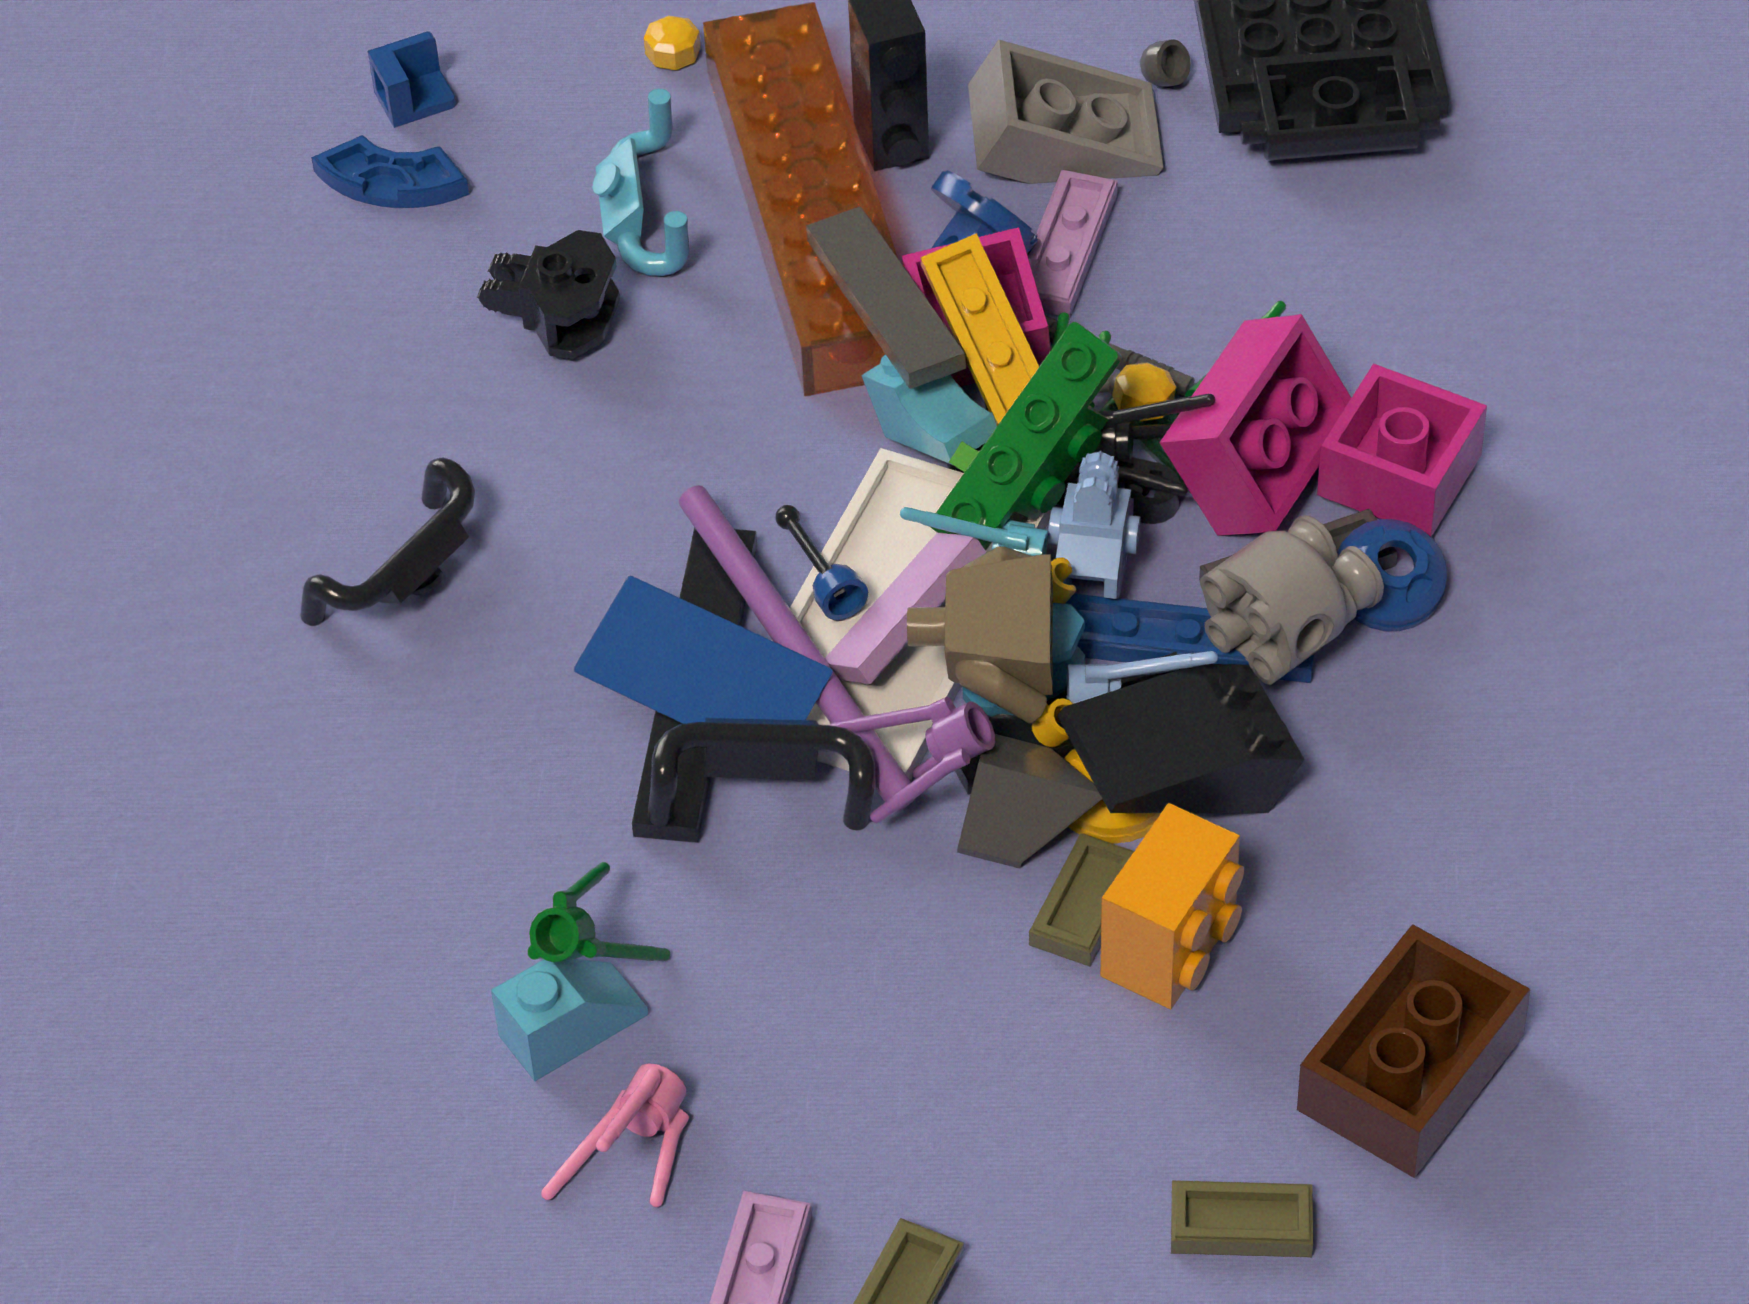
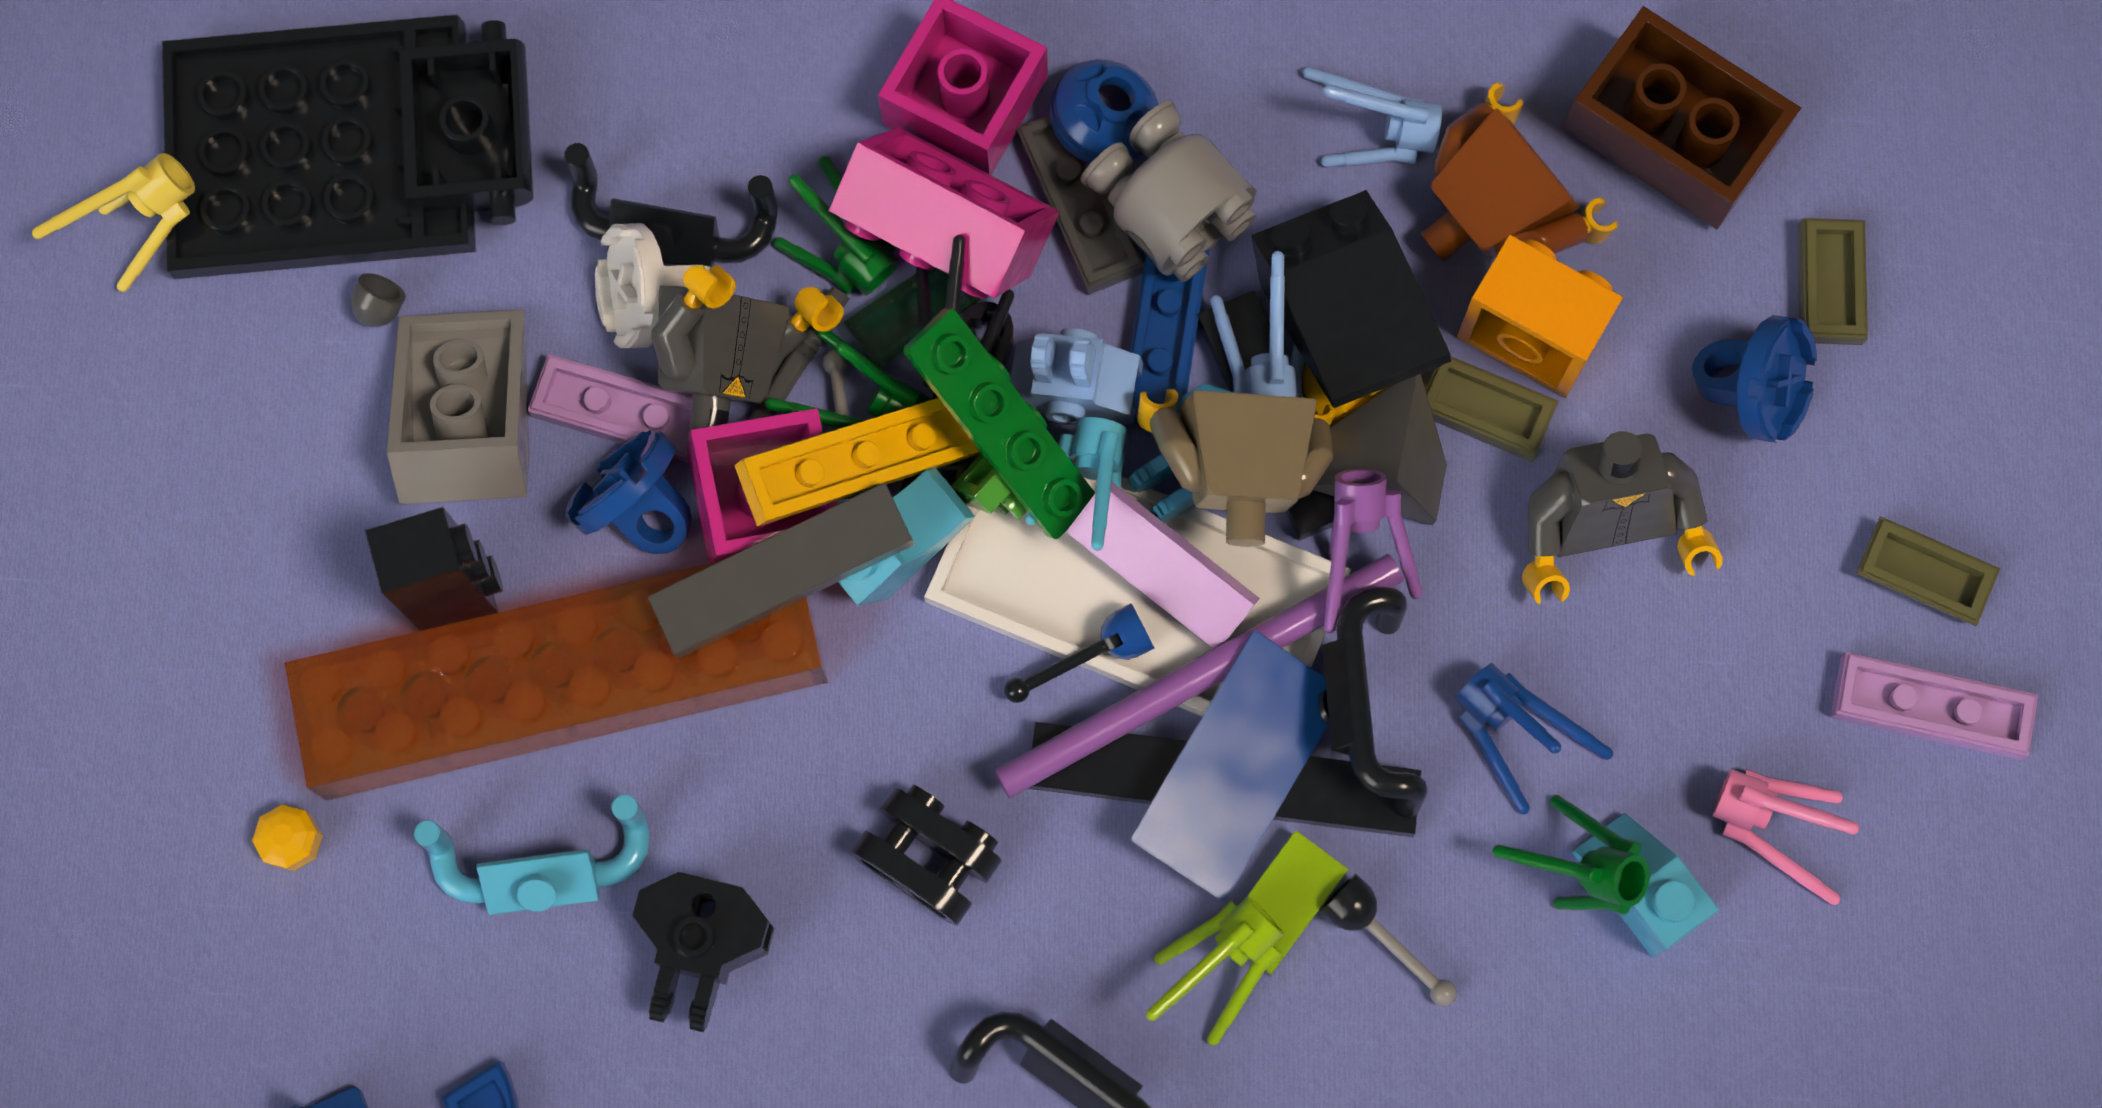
camera: 90 degrees left, 25 degrees up
(530, 668) = (1244, 935): none -> lime plant
(561, 775) = (1355, 908): none -> hinge
(571, 726) = (1296, 889): none -> lime tile
(629, 451) = (965, 848): none -> black brick
(760, 889) = (1497, 700): none -> blue plant
(974, 980) = (1613, 498): none -> dark grey torso
(1108, 1121) = (1770, 379): none -> blue tile
(1116, 271) = (728, 343): none -> torso
(1142, 385) = (872, 327): yellow tile -> none
(1175, 216) = (630, 283): none -> white tile
(1235, 242) = (680, 234): none -> black piece
(1321, 890) = (1502, 188): none -> dark orange torso
(1396, 828) = (1409, 121): none -> light blue plant

